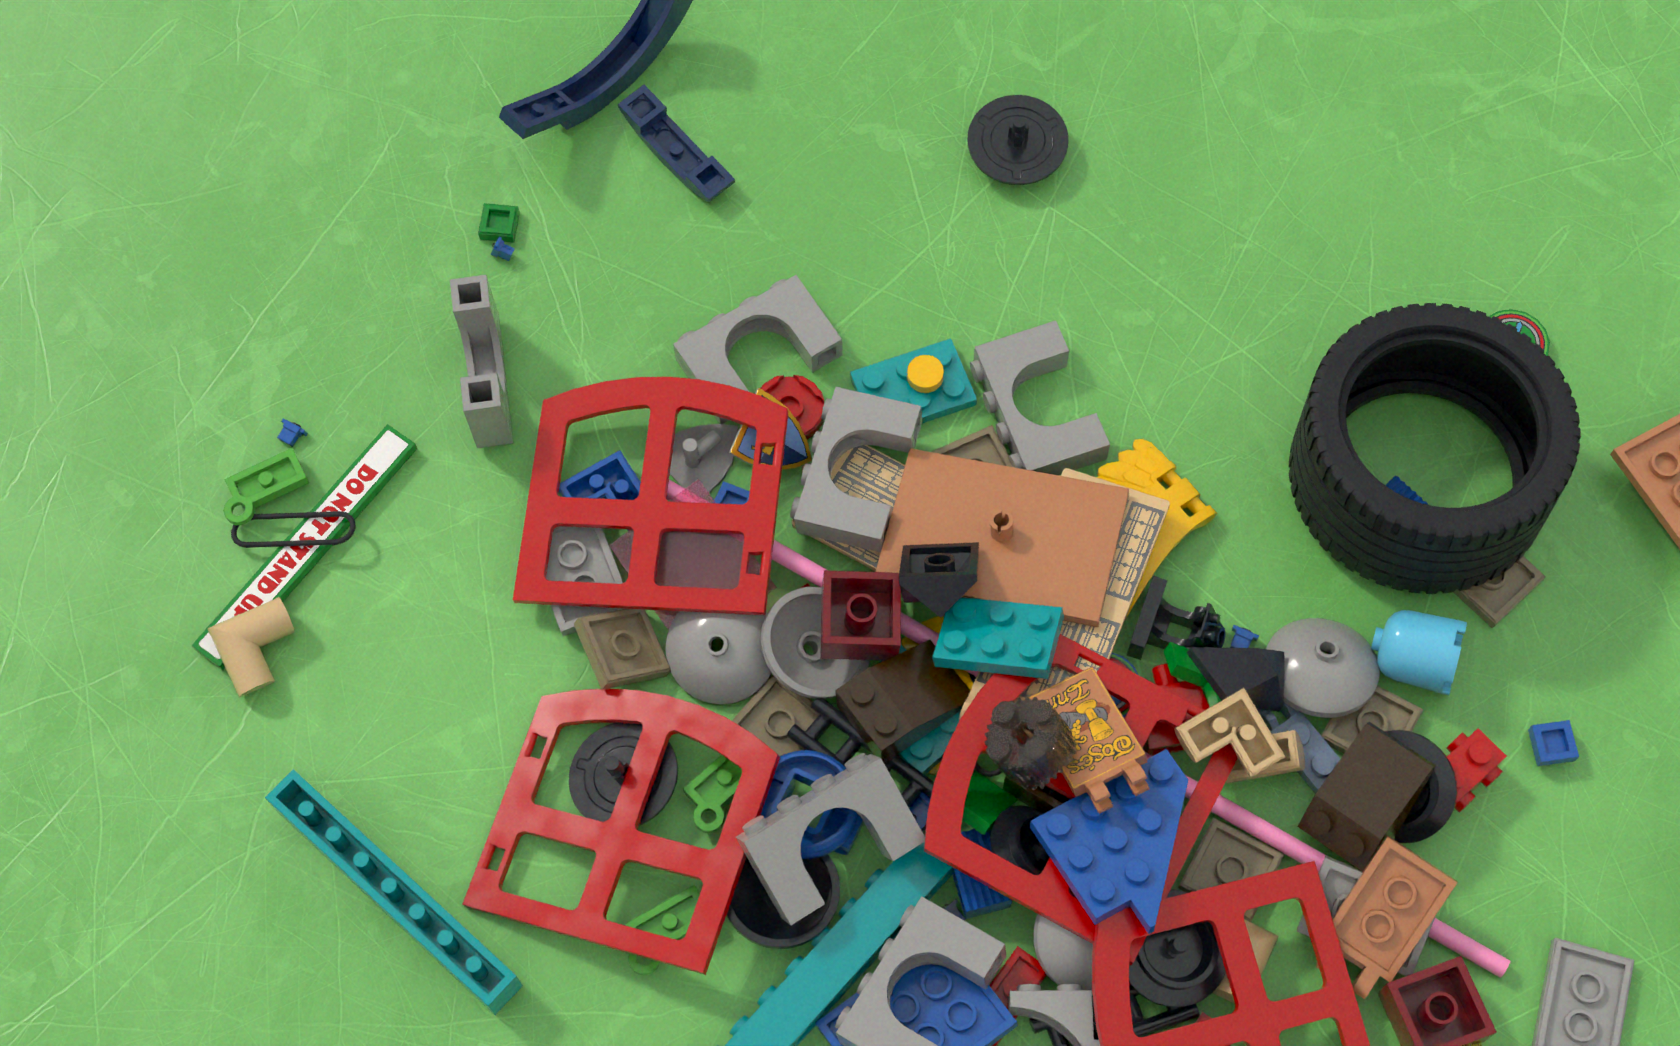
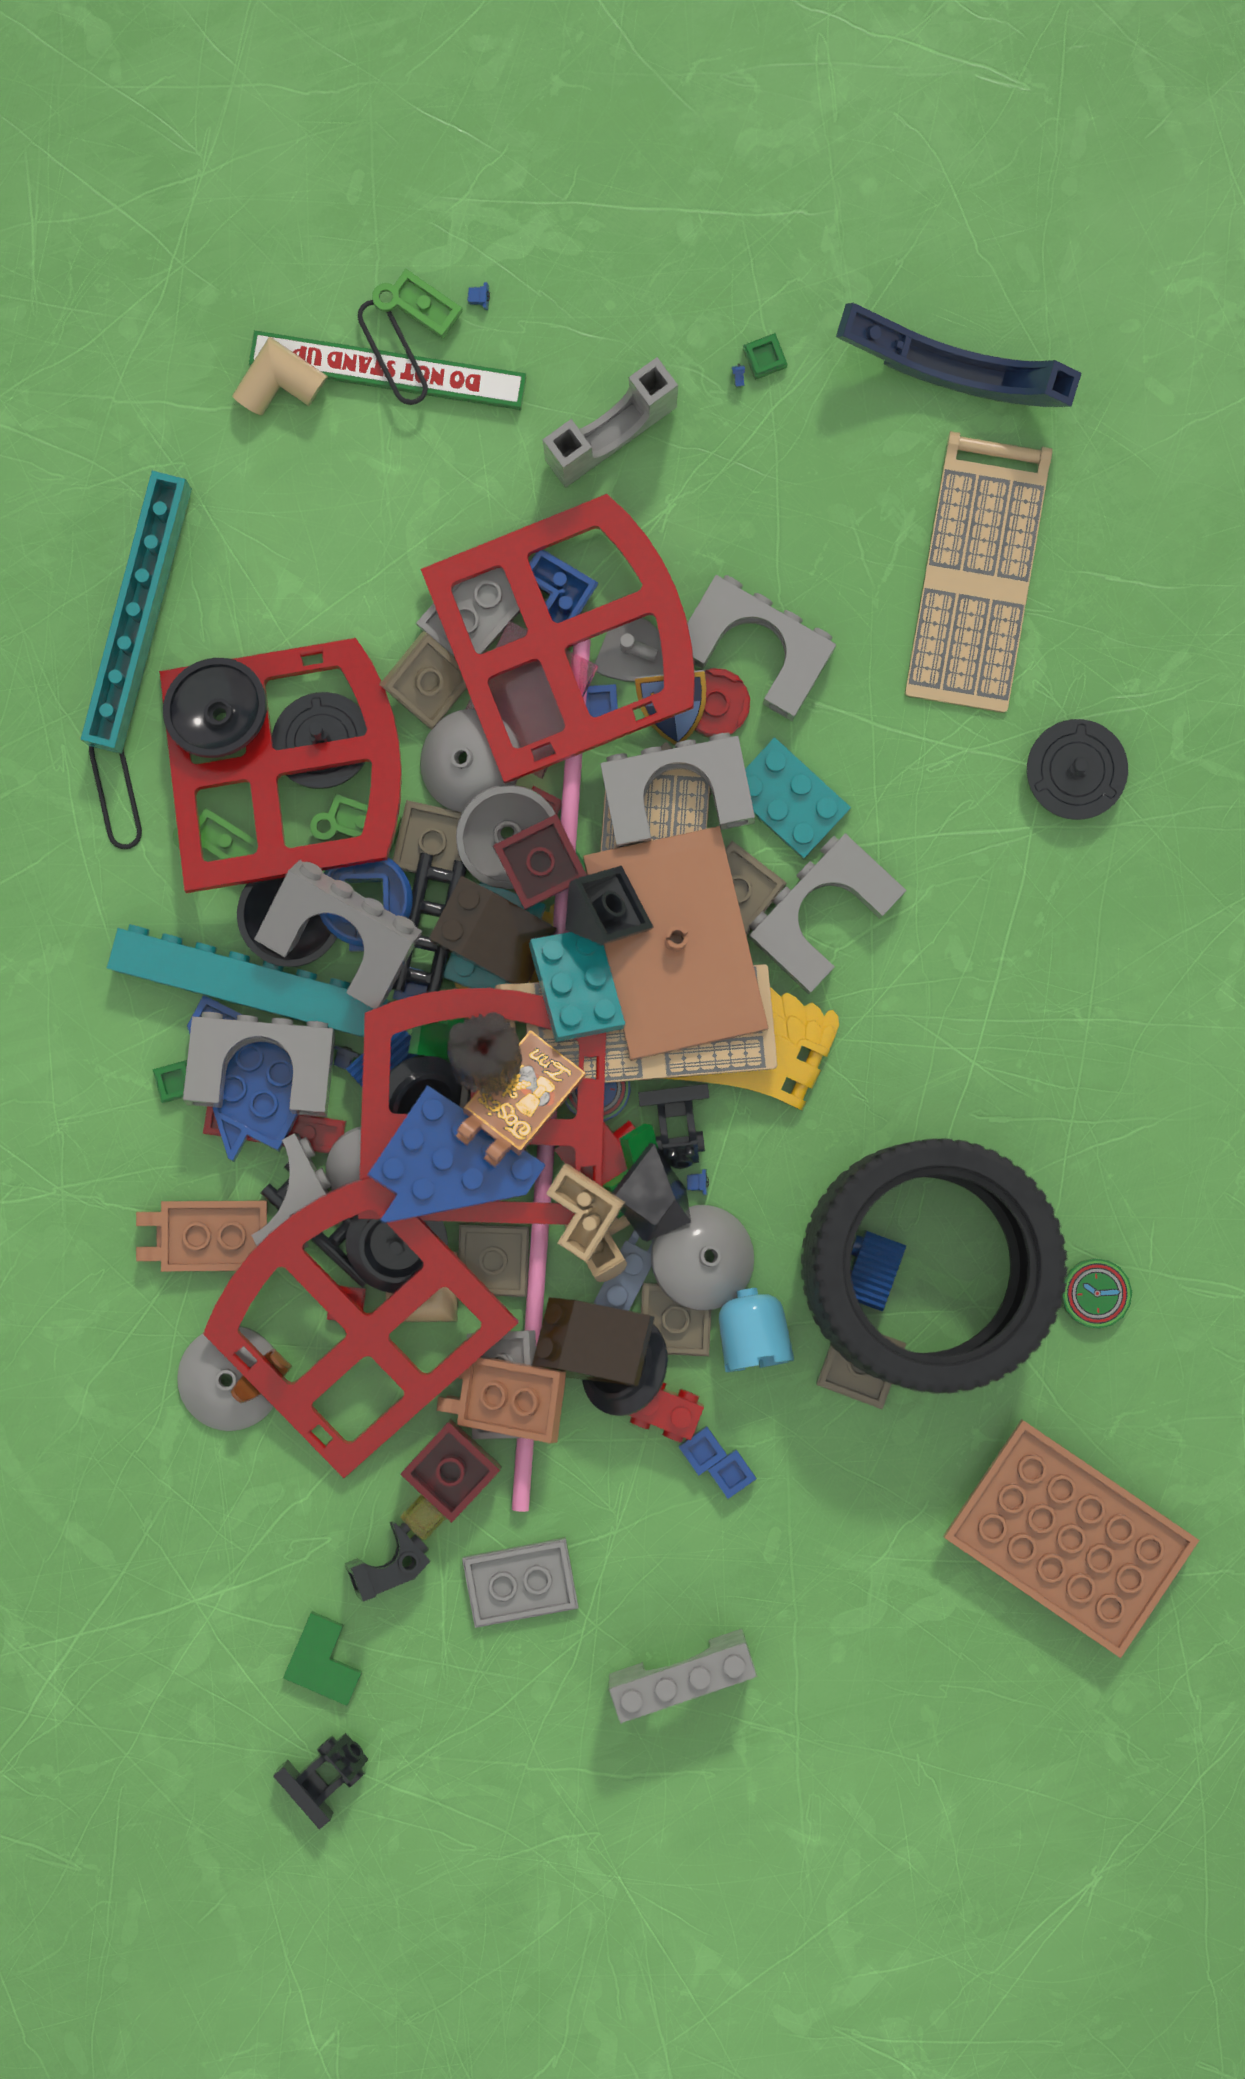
camera: 65 degrees right, 20 degrees up
(517, 843) = (204, 693): none -> black dish
(616, 1014) = (103, 803): none -> black piece
(672, 146) = (917, 468): dark blue slope -> none
(799, 146) = (977, 576): none -> tan flag
(925, 373) = (799, 803): yellow tile -> none
(1521, 759) = (702, 1450): none -> blue plate

